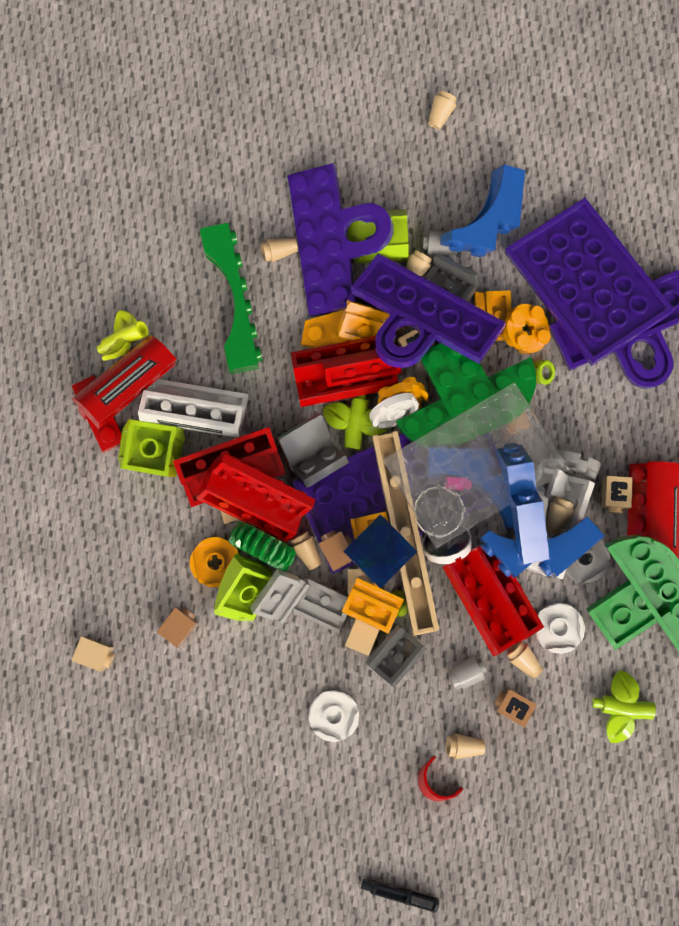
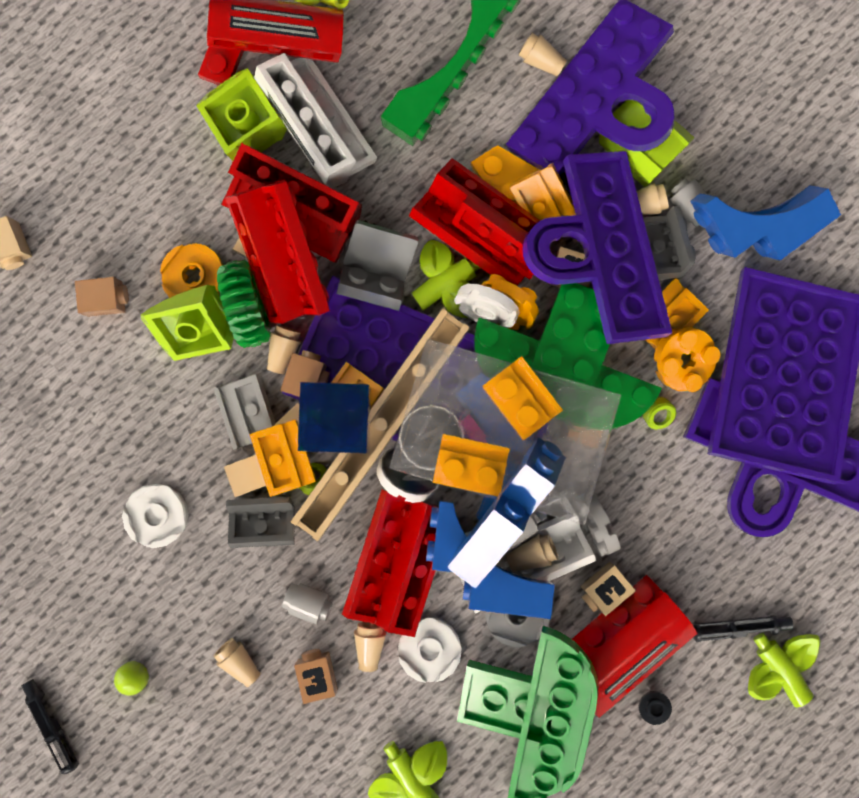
camera: 45 degrees right, 5 degrees up
(279, 596) = (213, 363): light grey plate -> none
(416, 819) = (131, 678): none -> lime piece
(424, 786) = (169, 653): red helmet -> none
(441, 109) = (826, 81): tan cone -> none
(466, 437) = (522, 398): none -> light orange plate
(477, 500) = (471, 465): none -> light orange plate

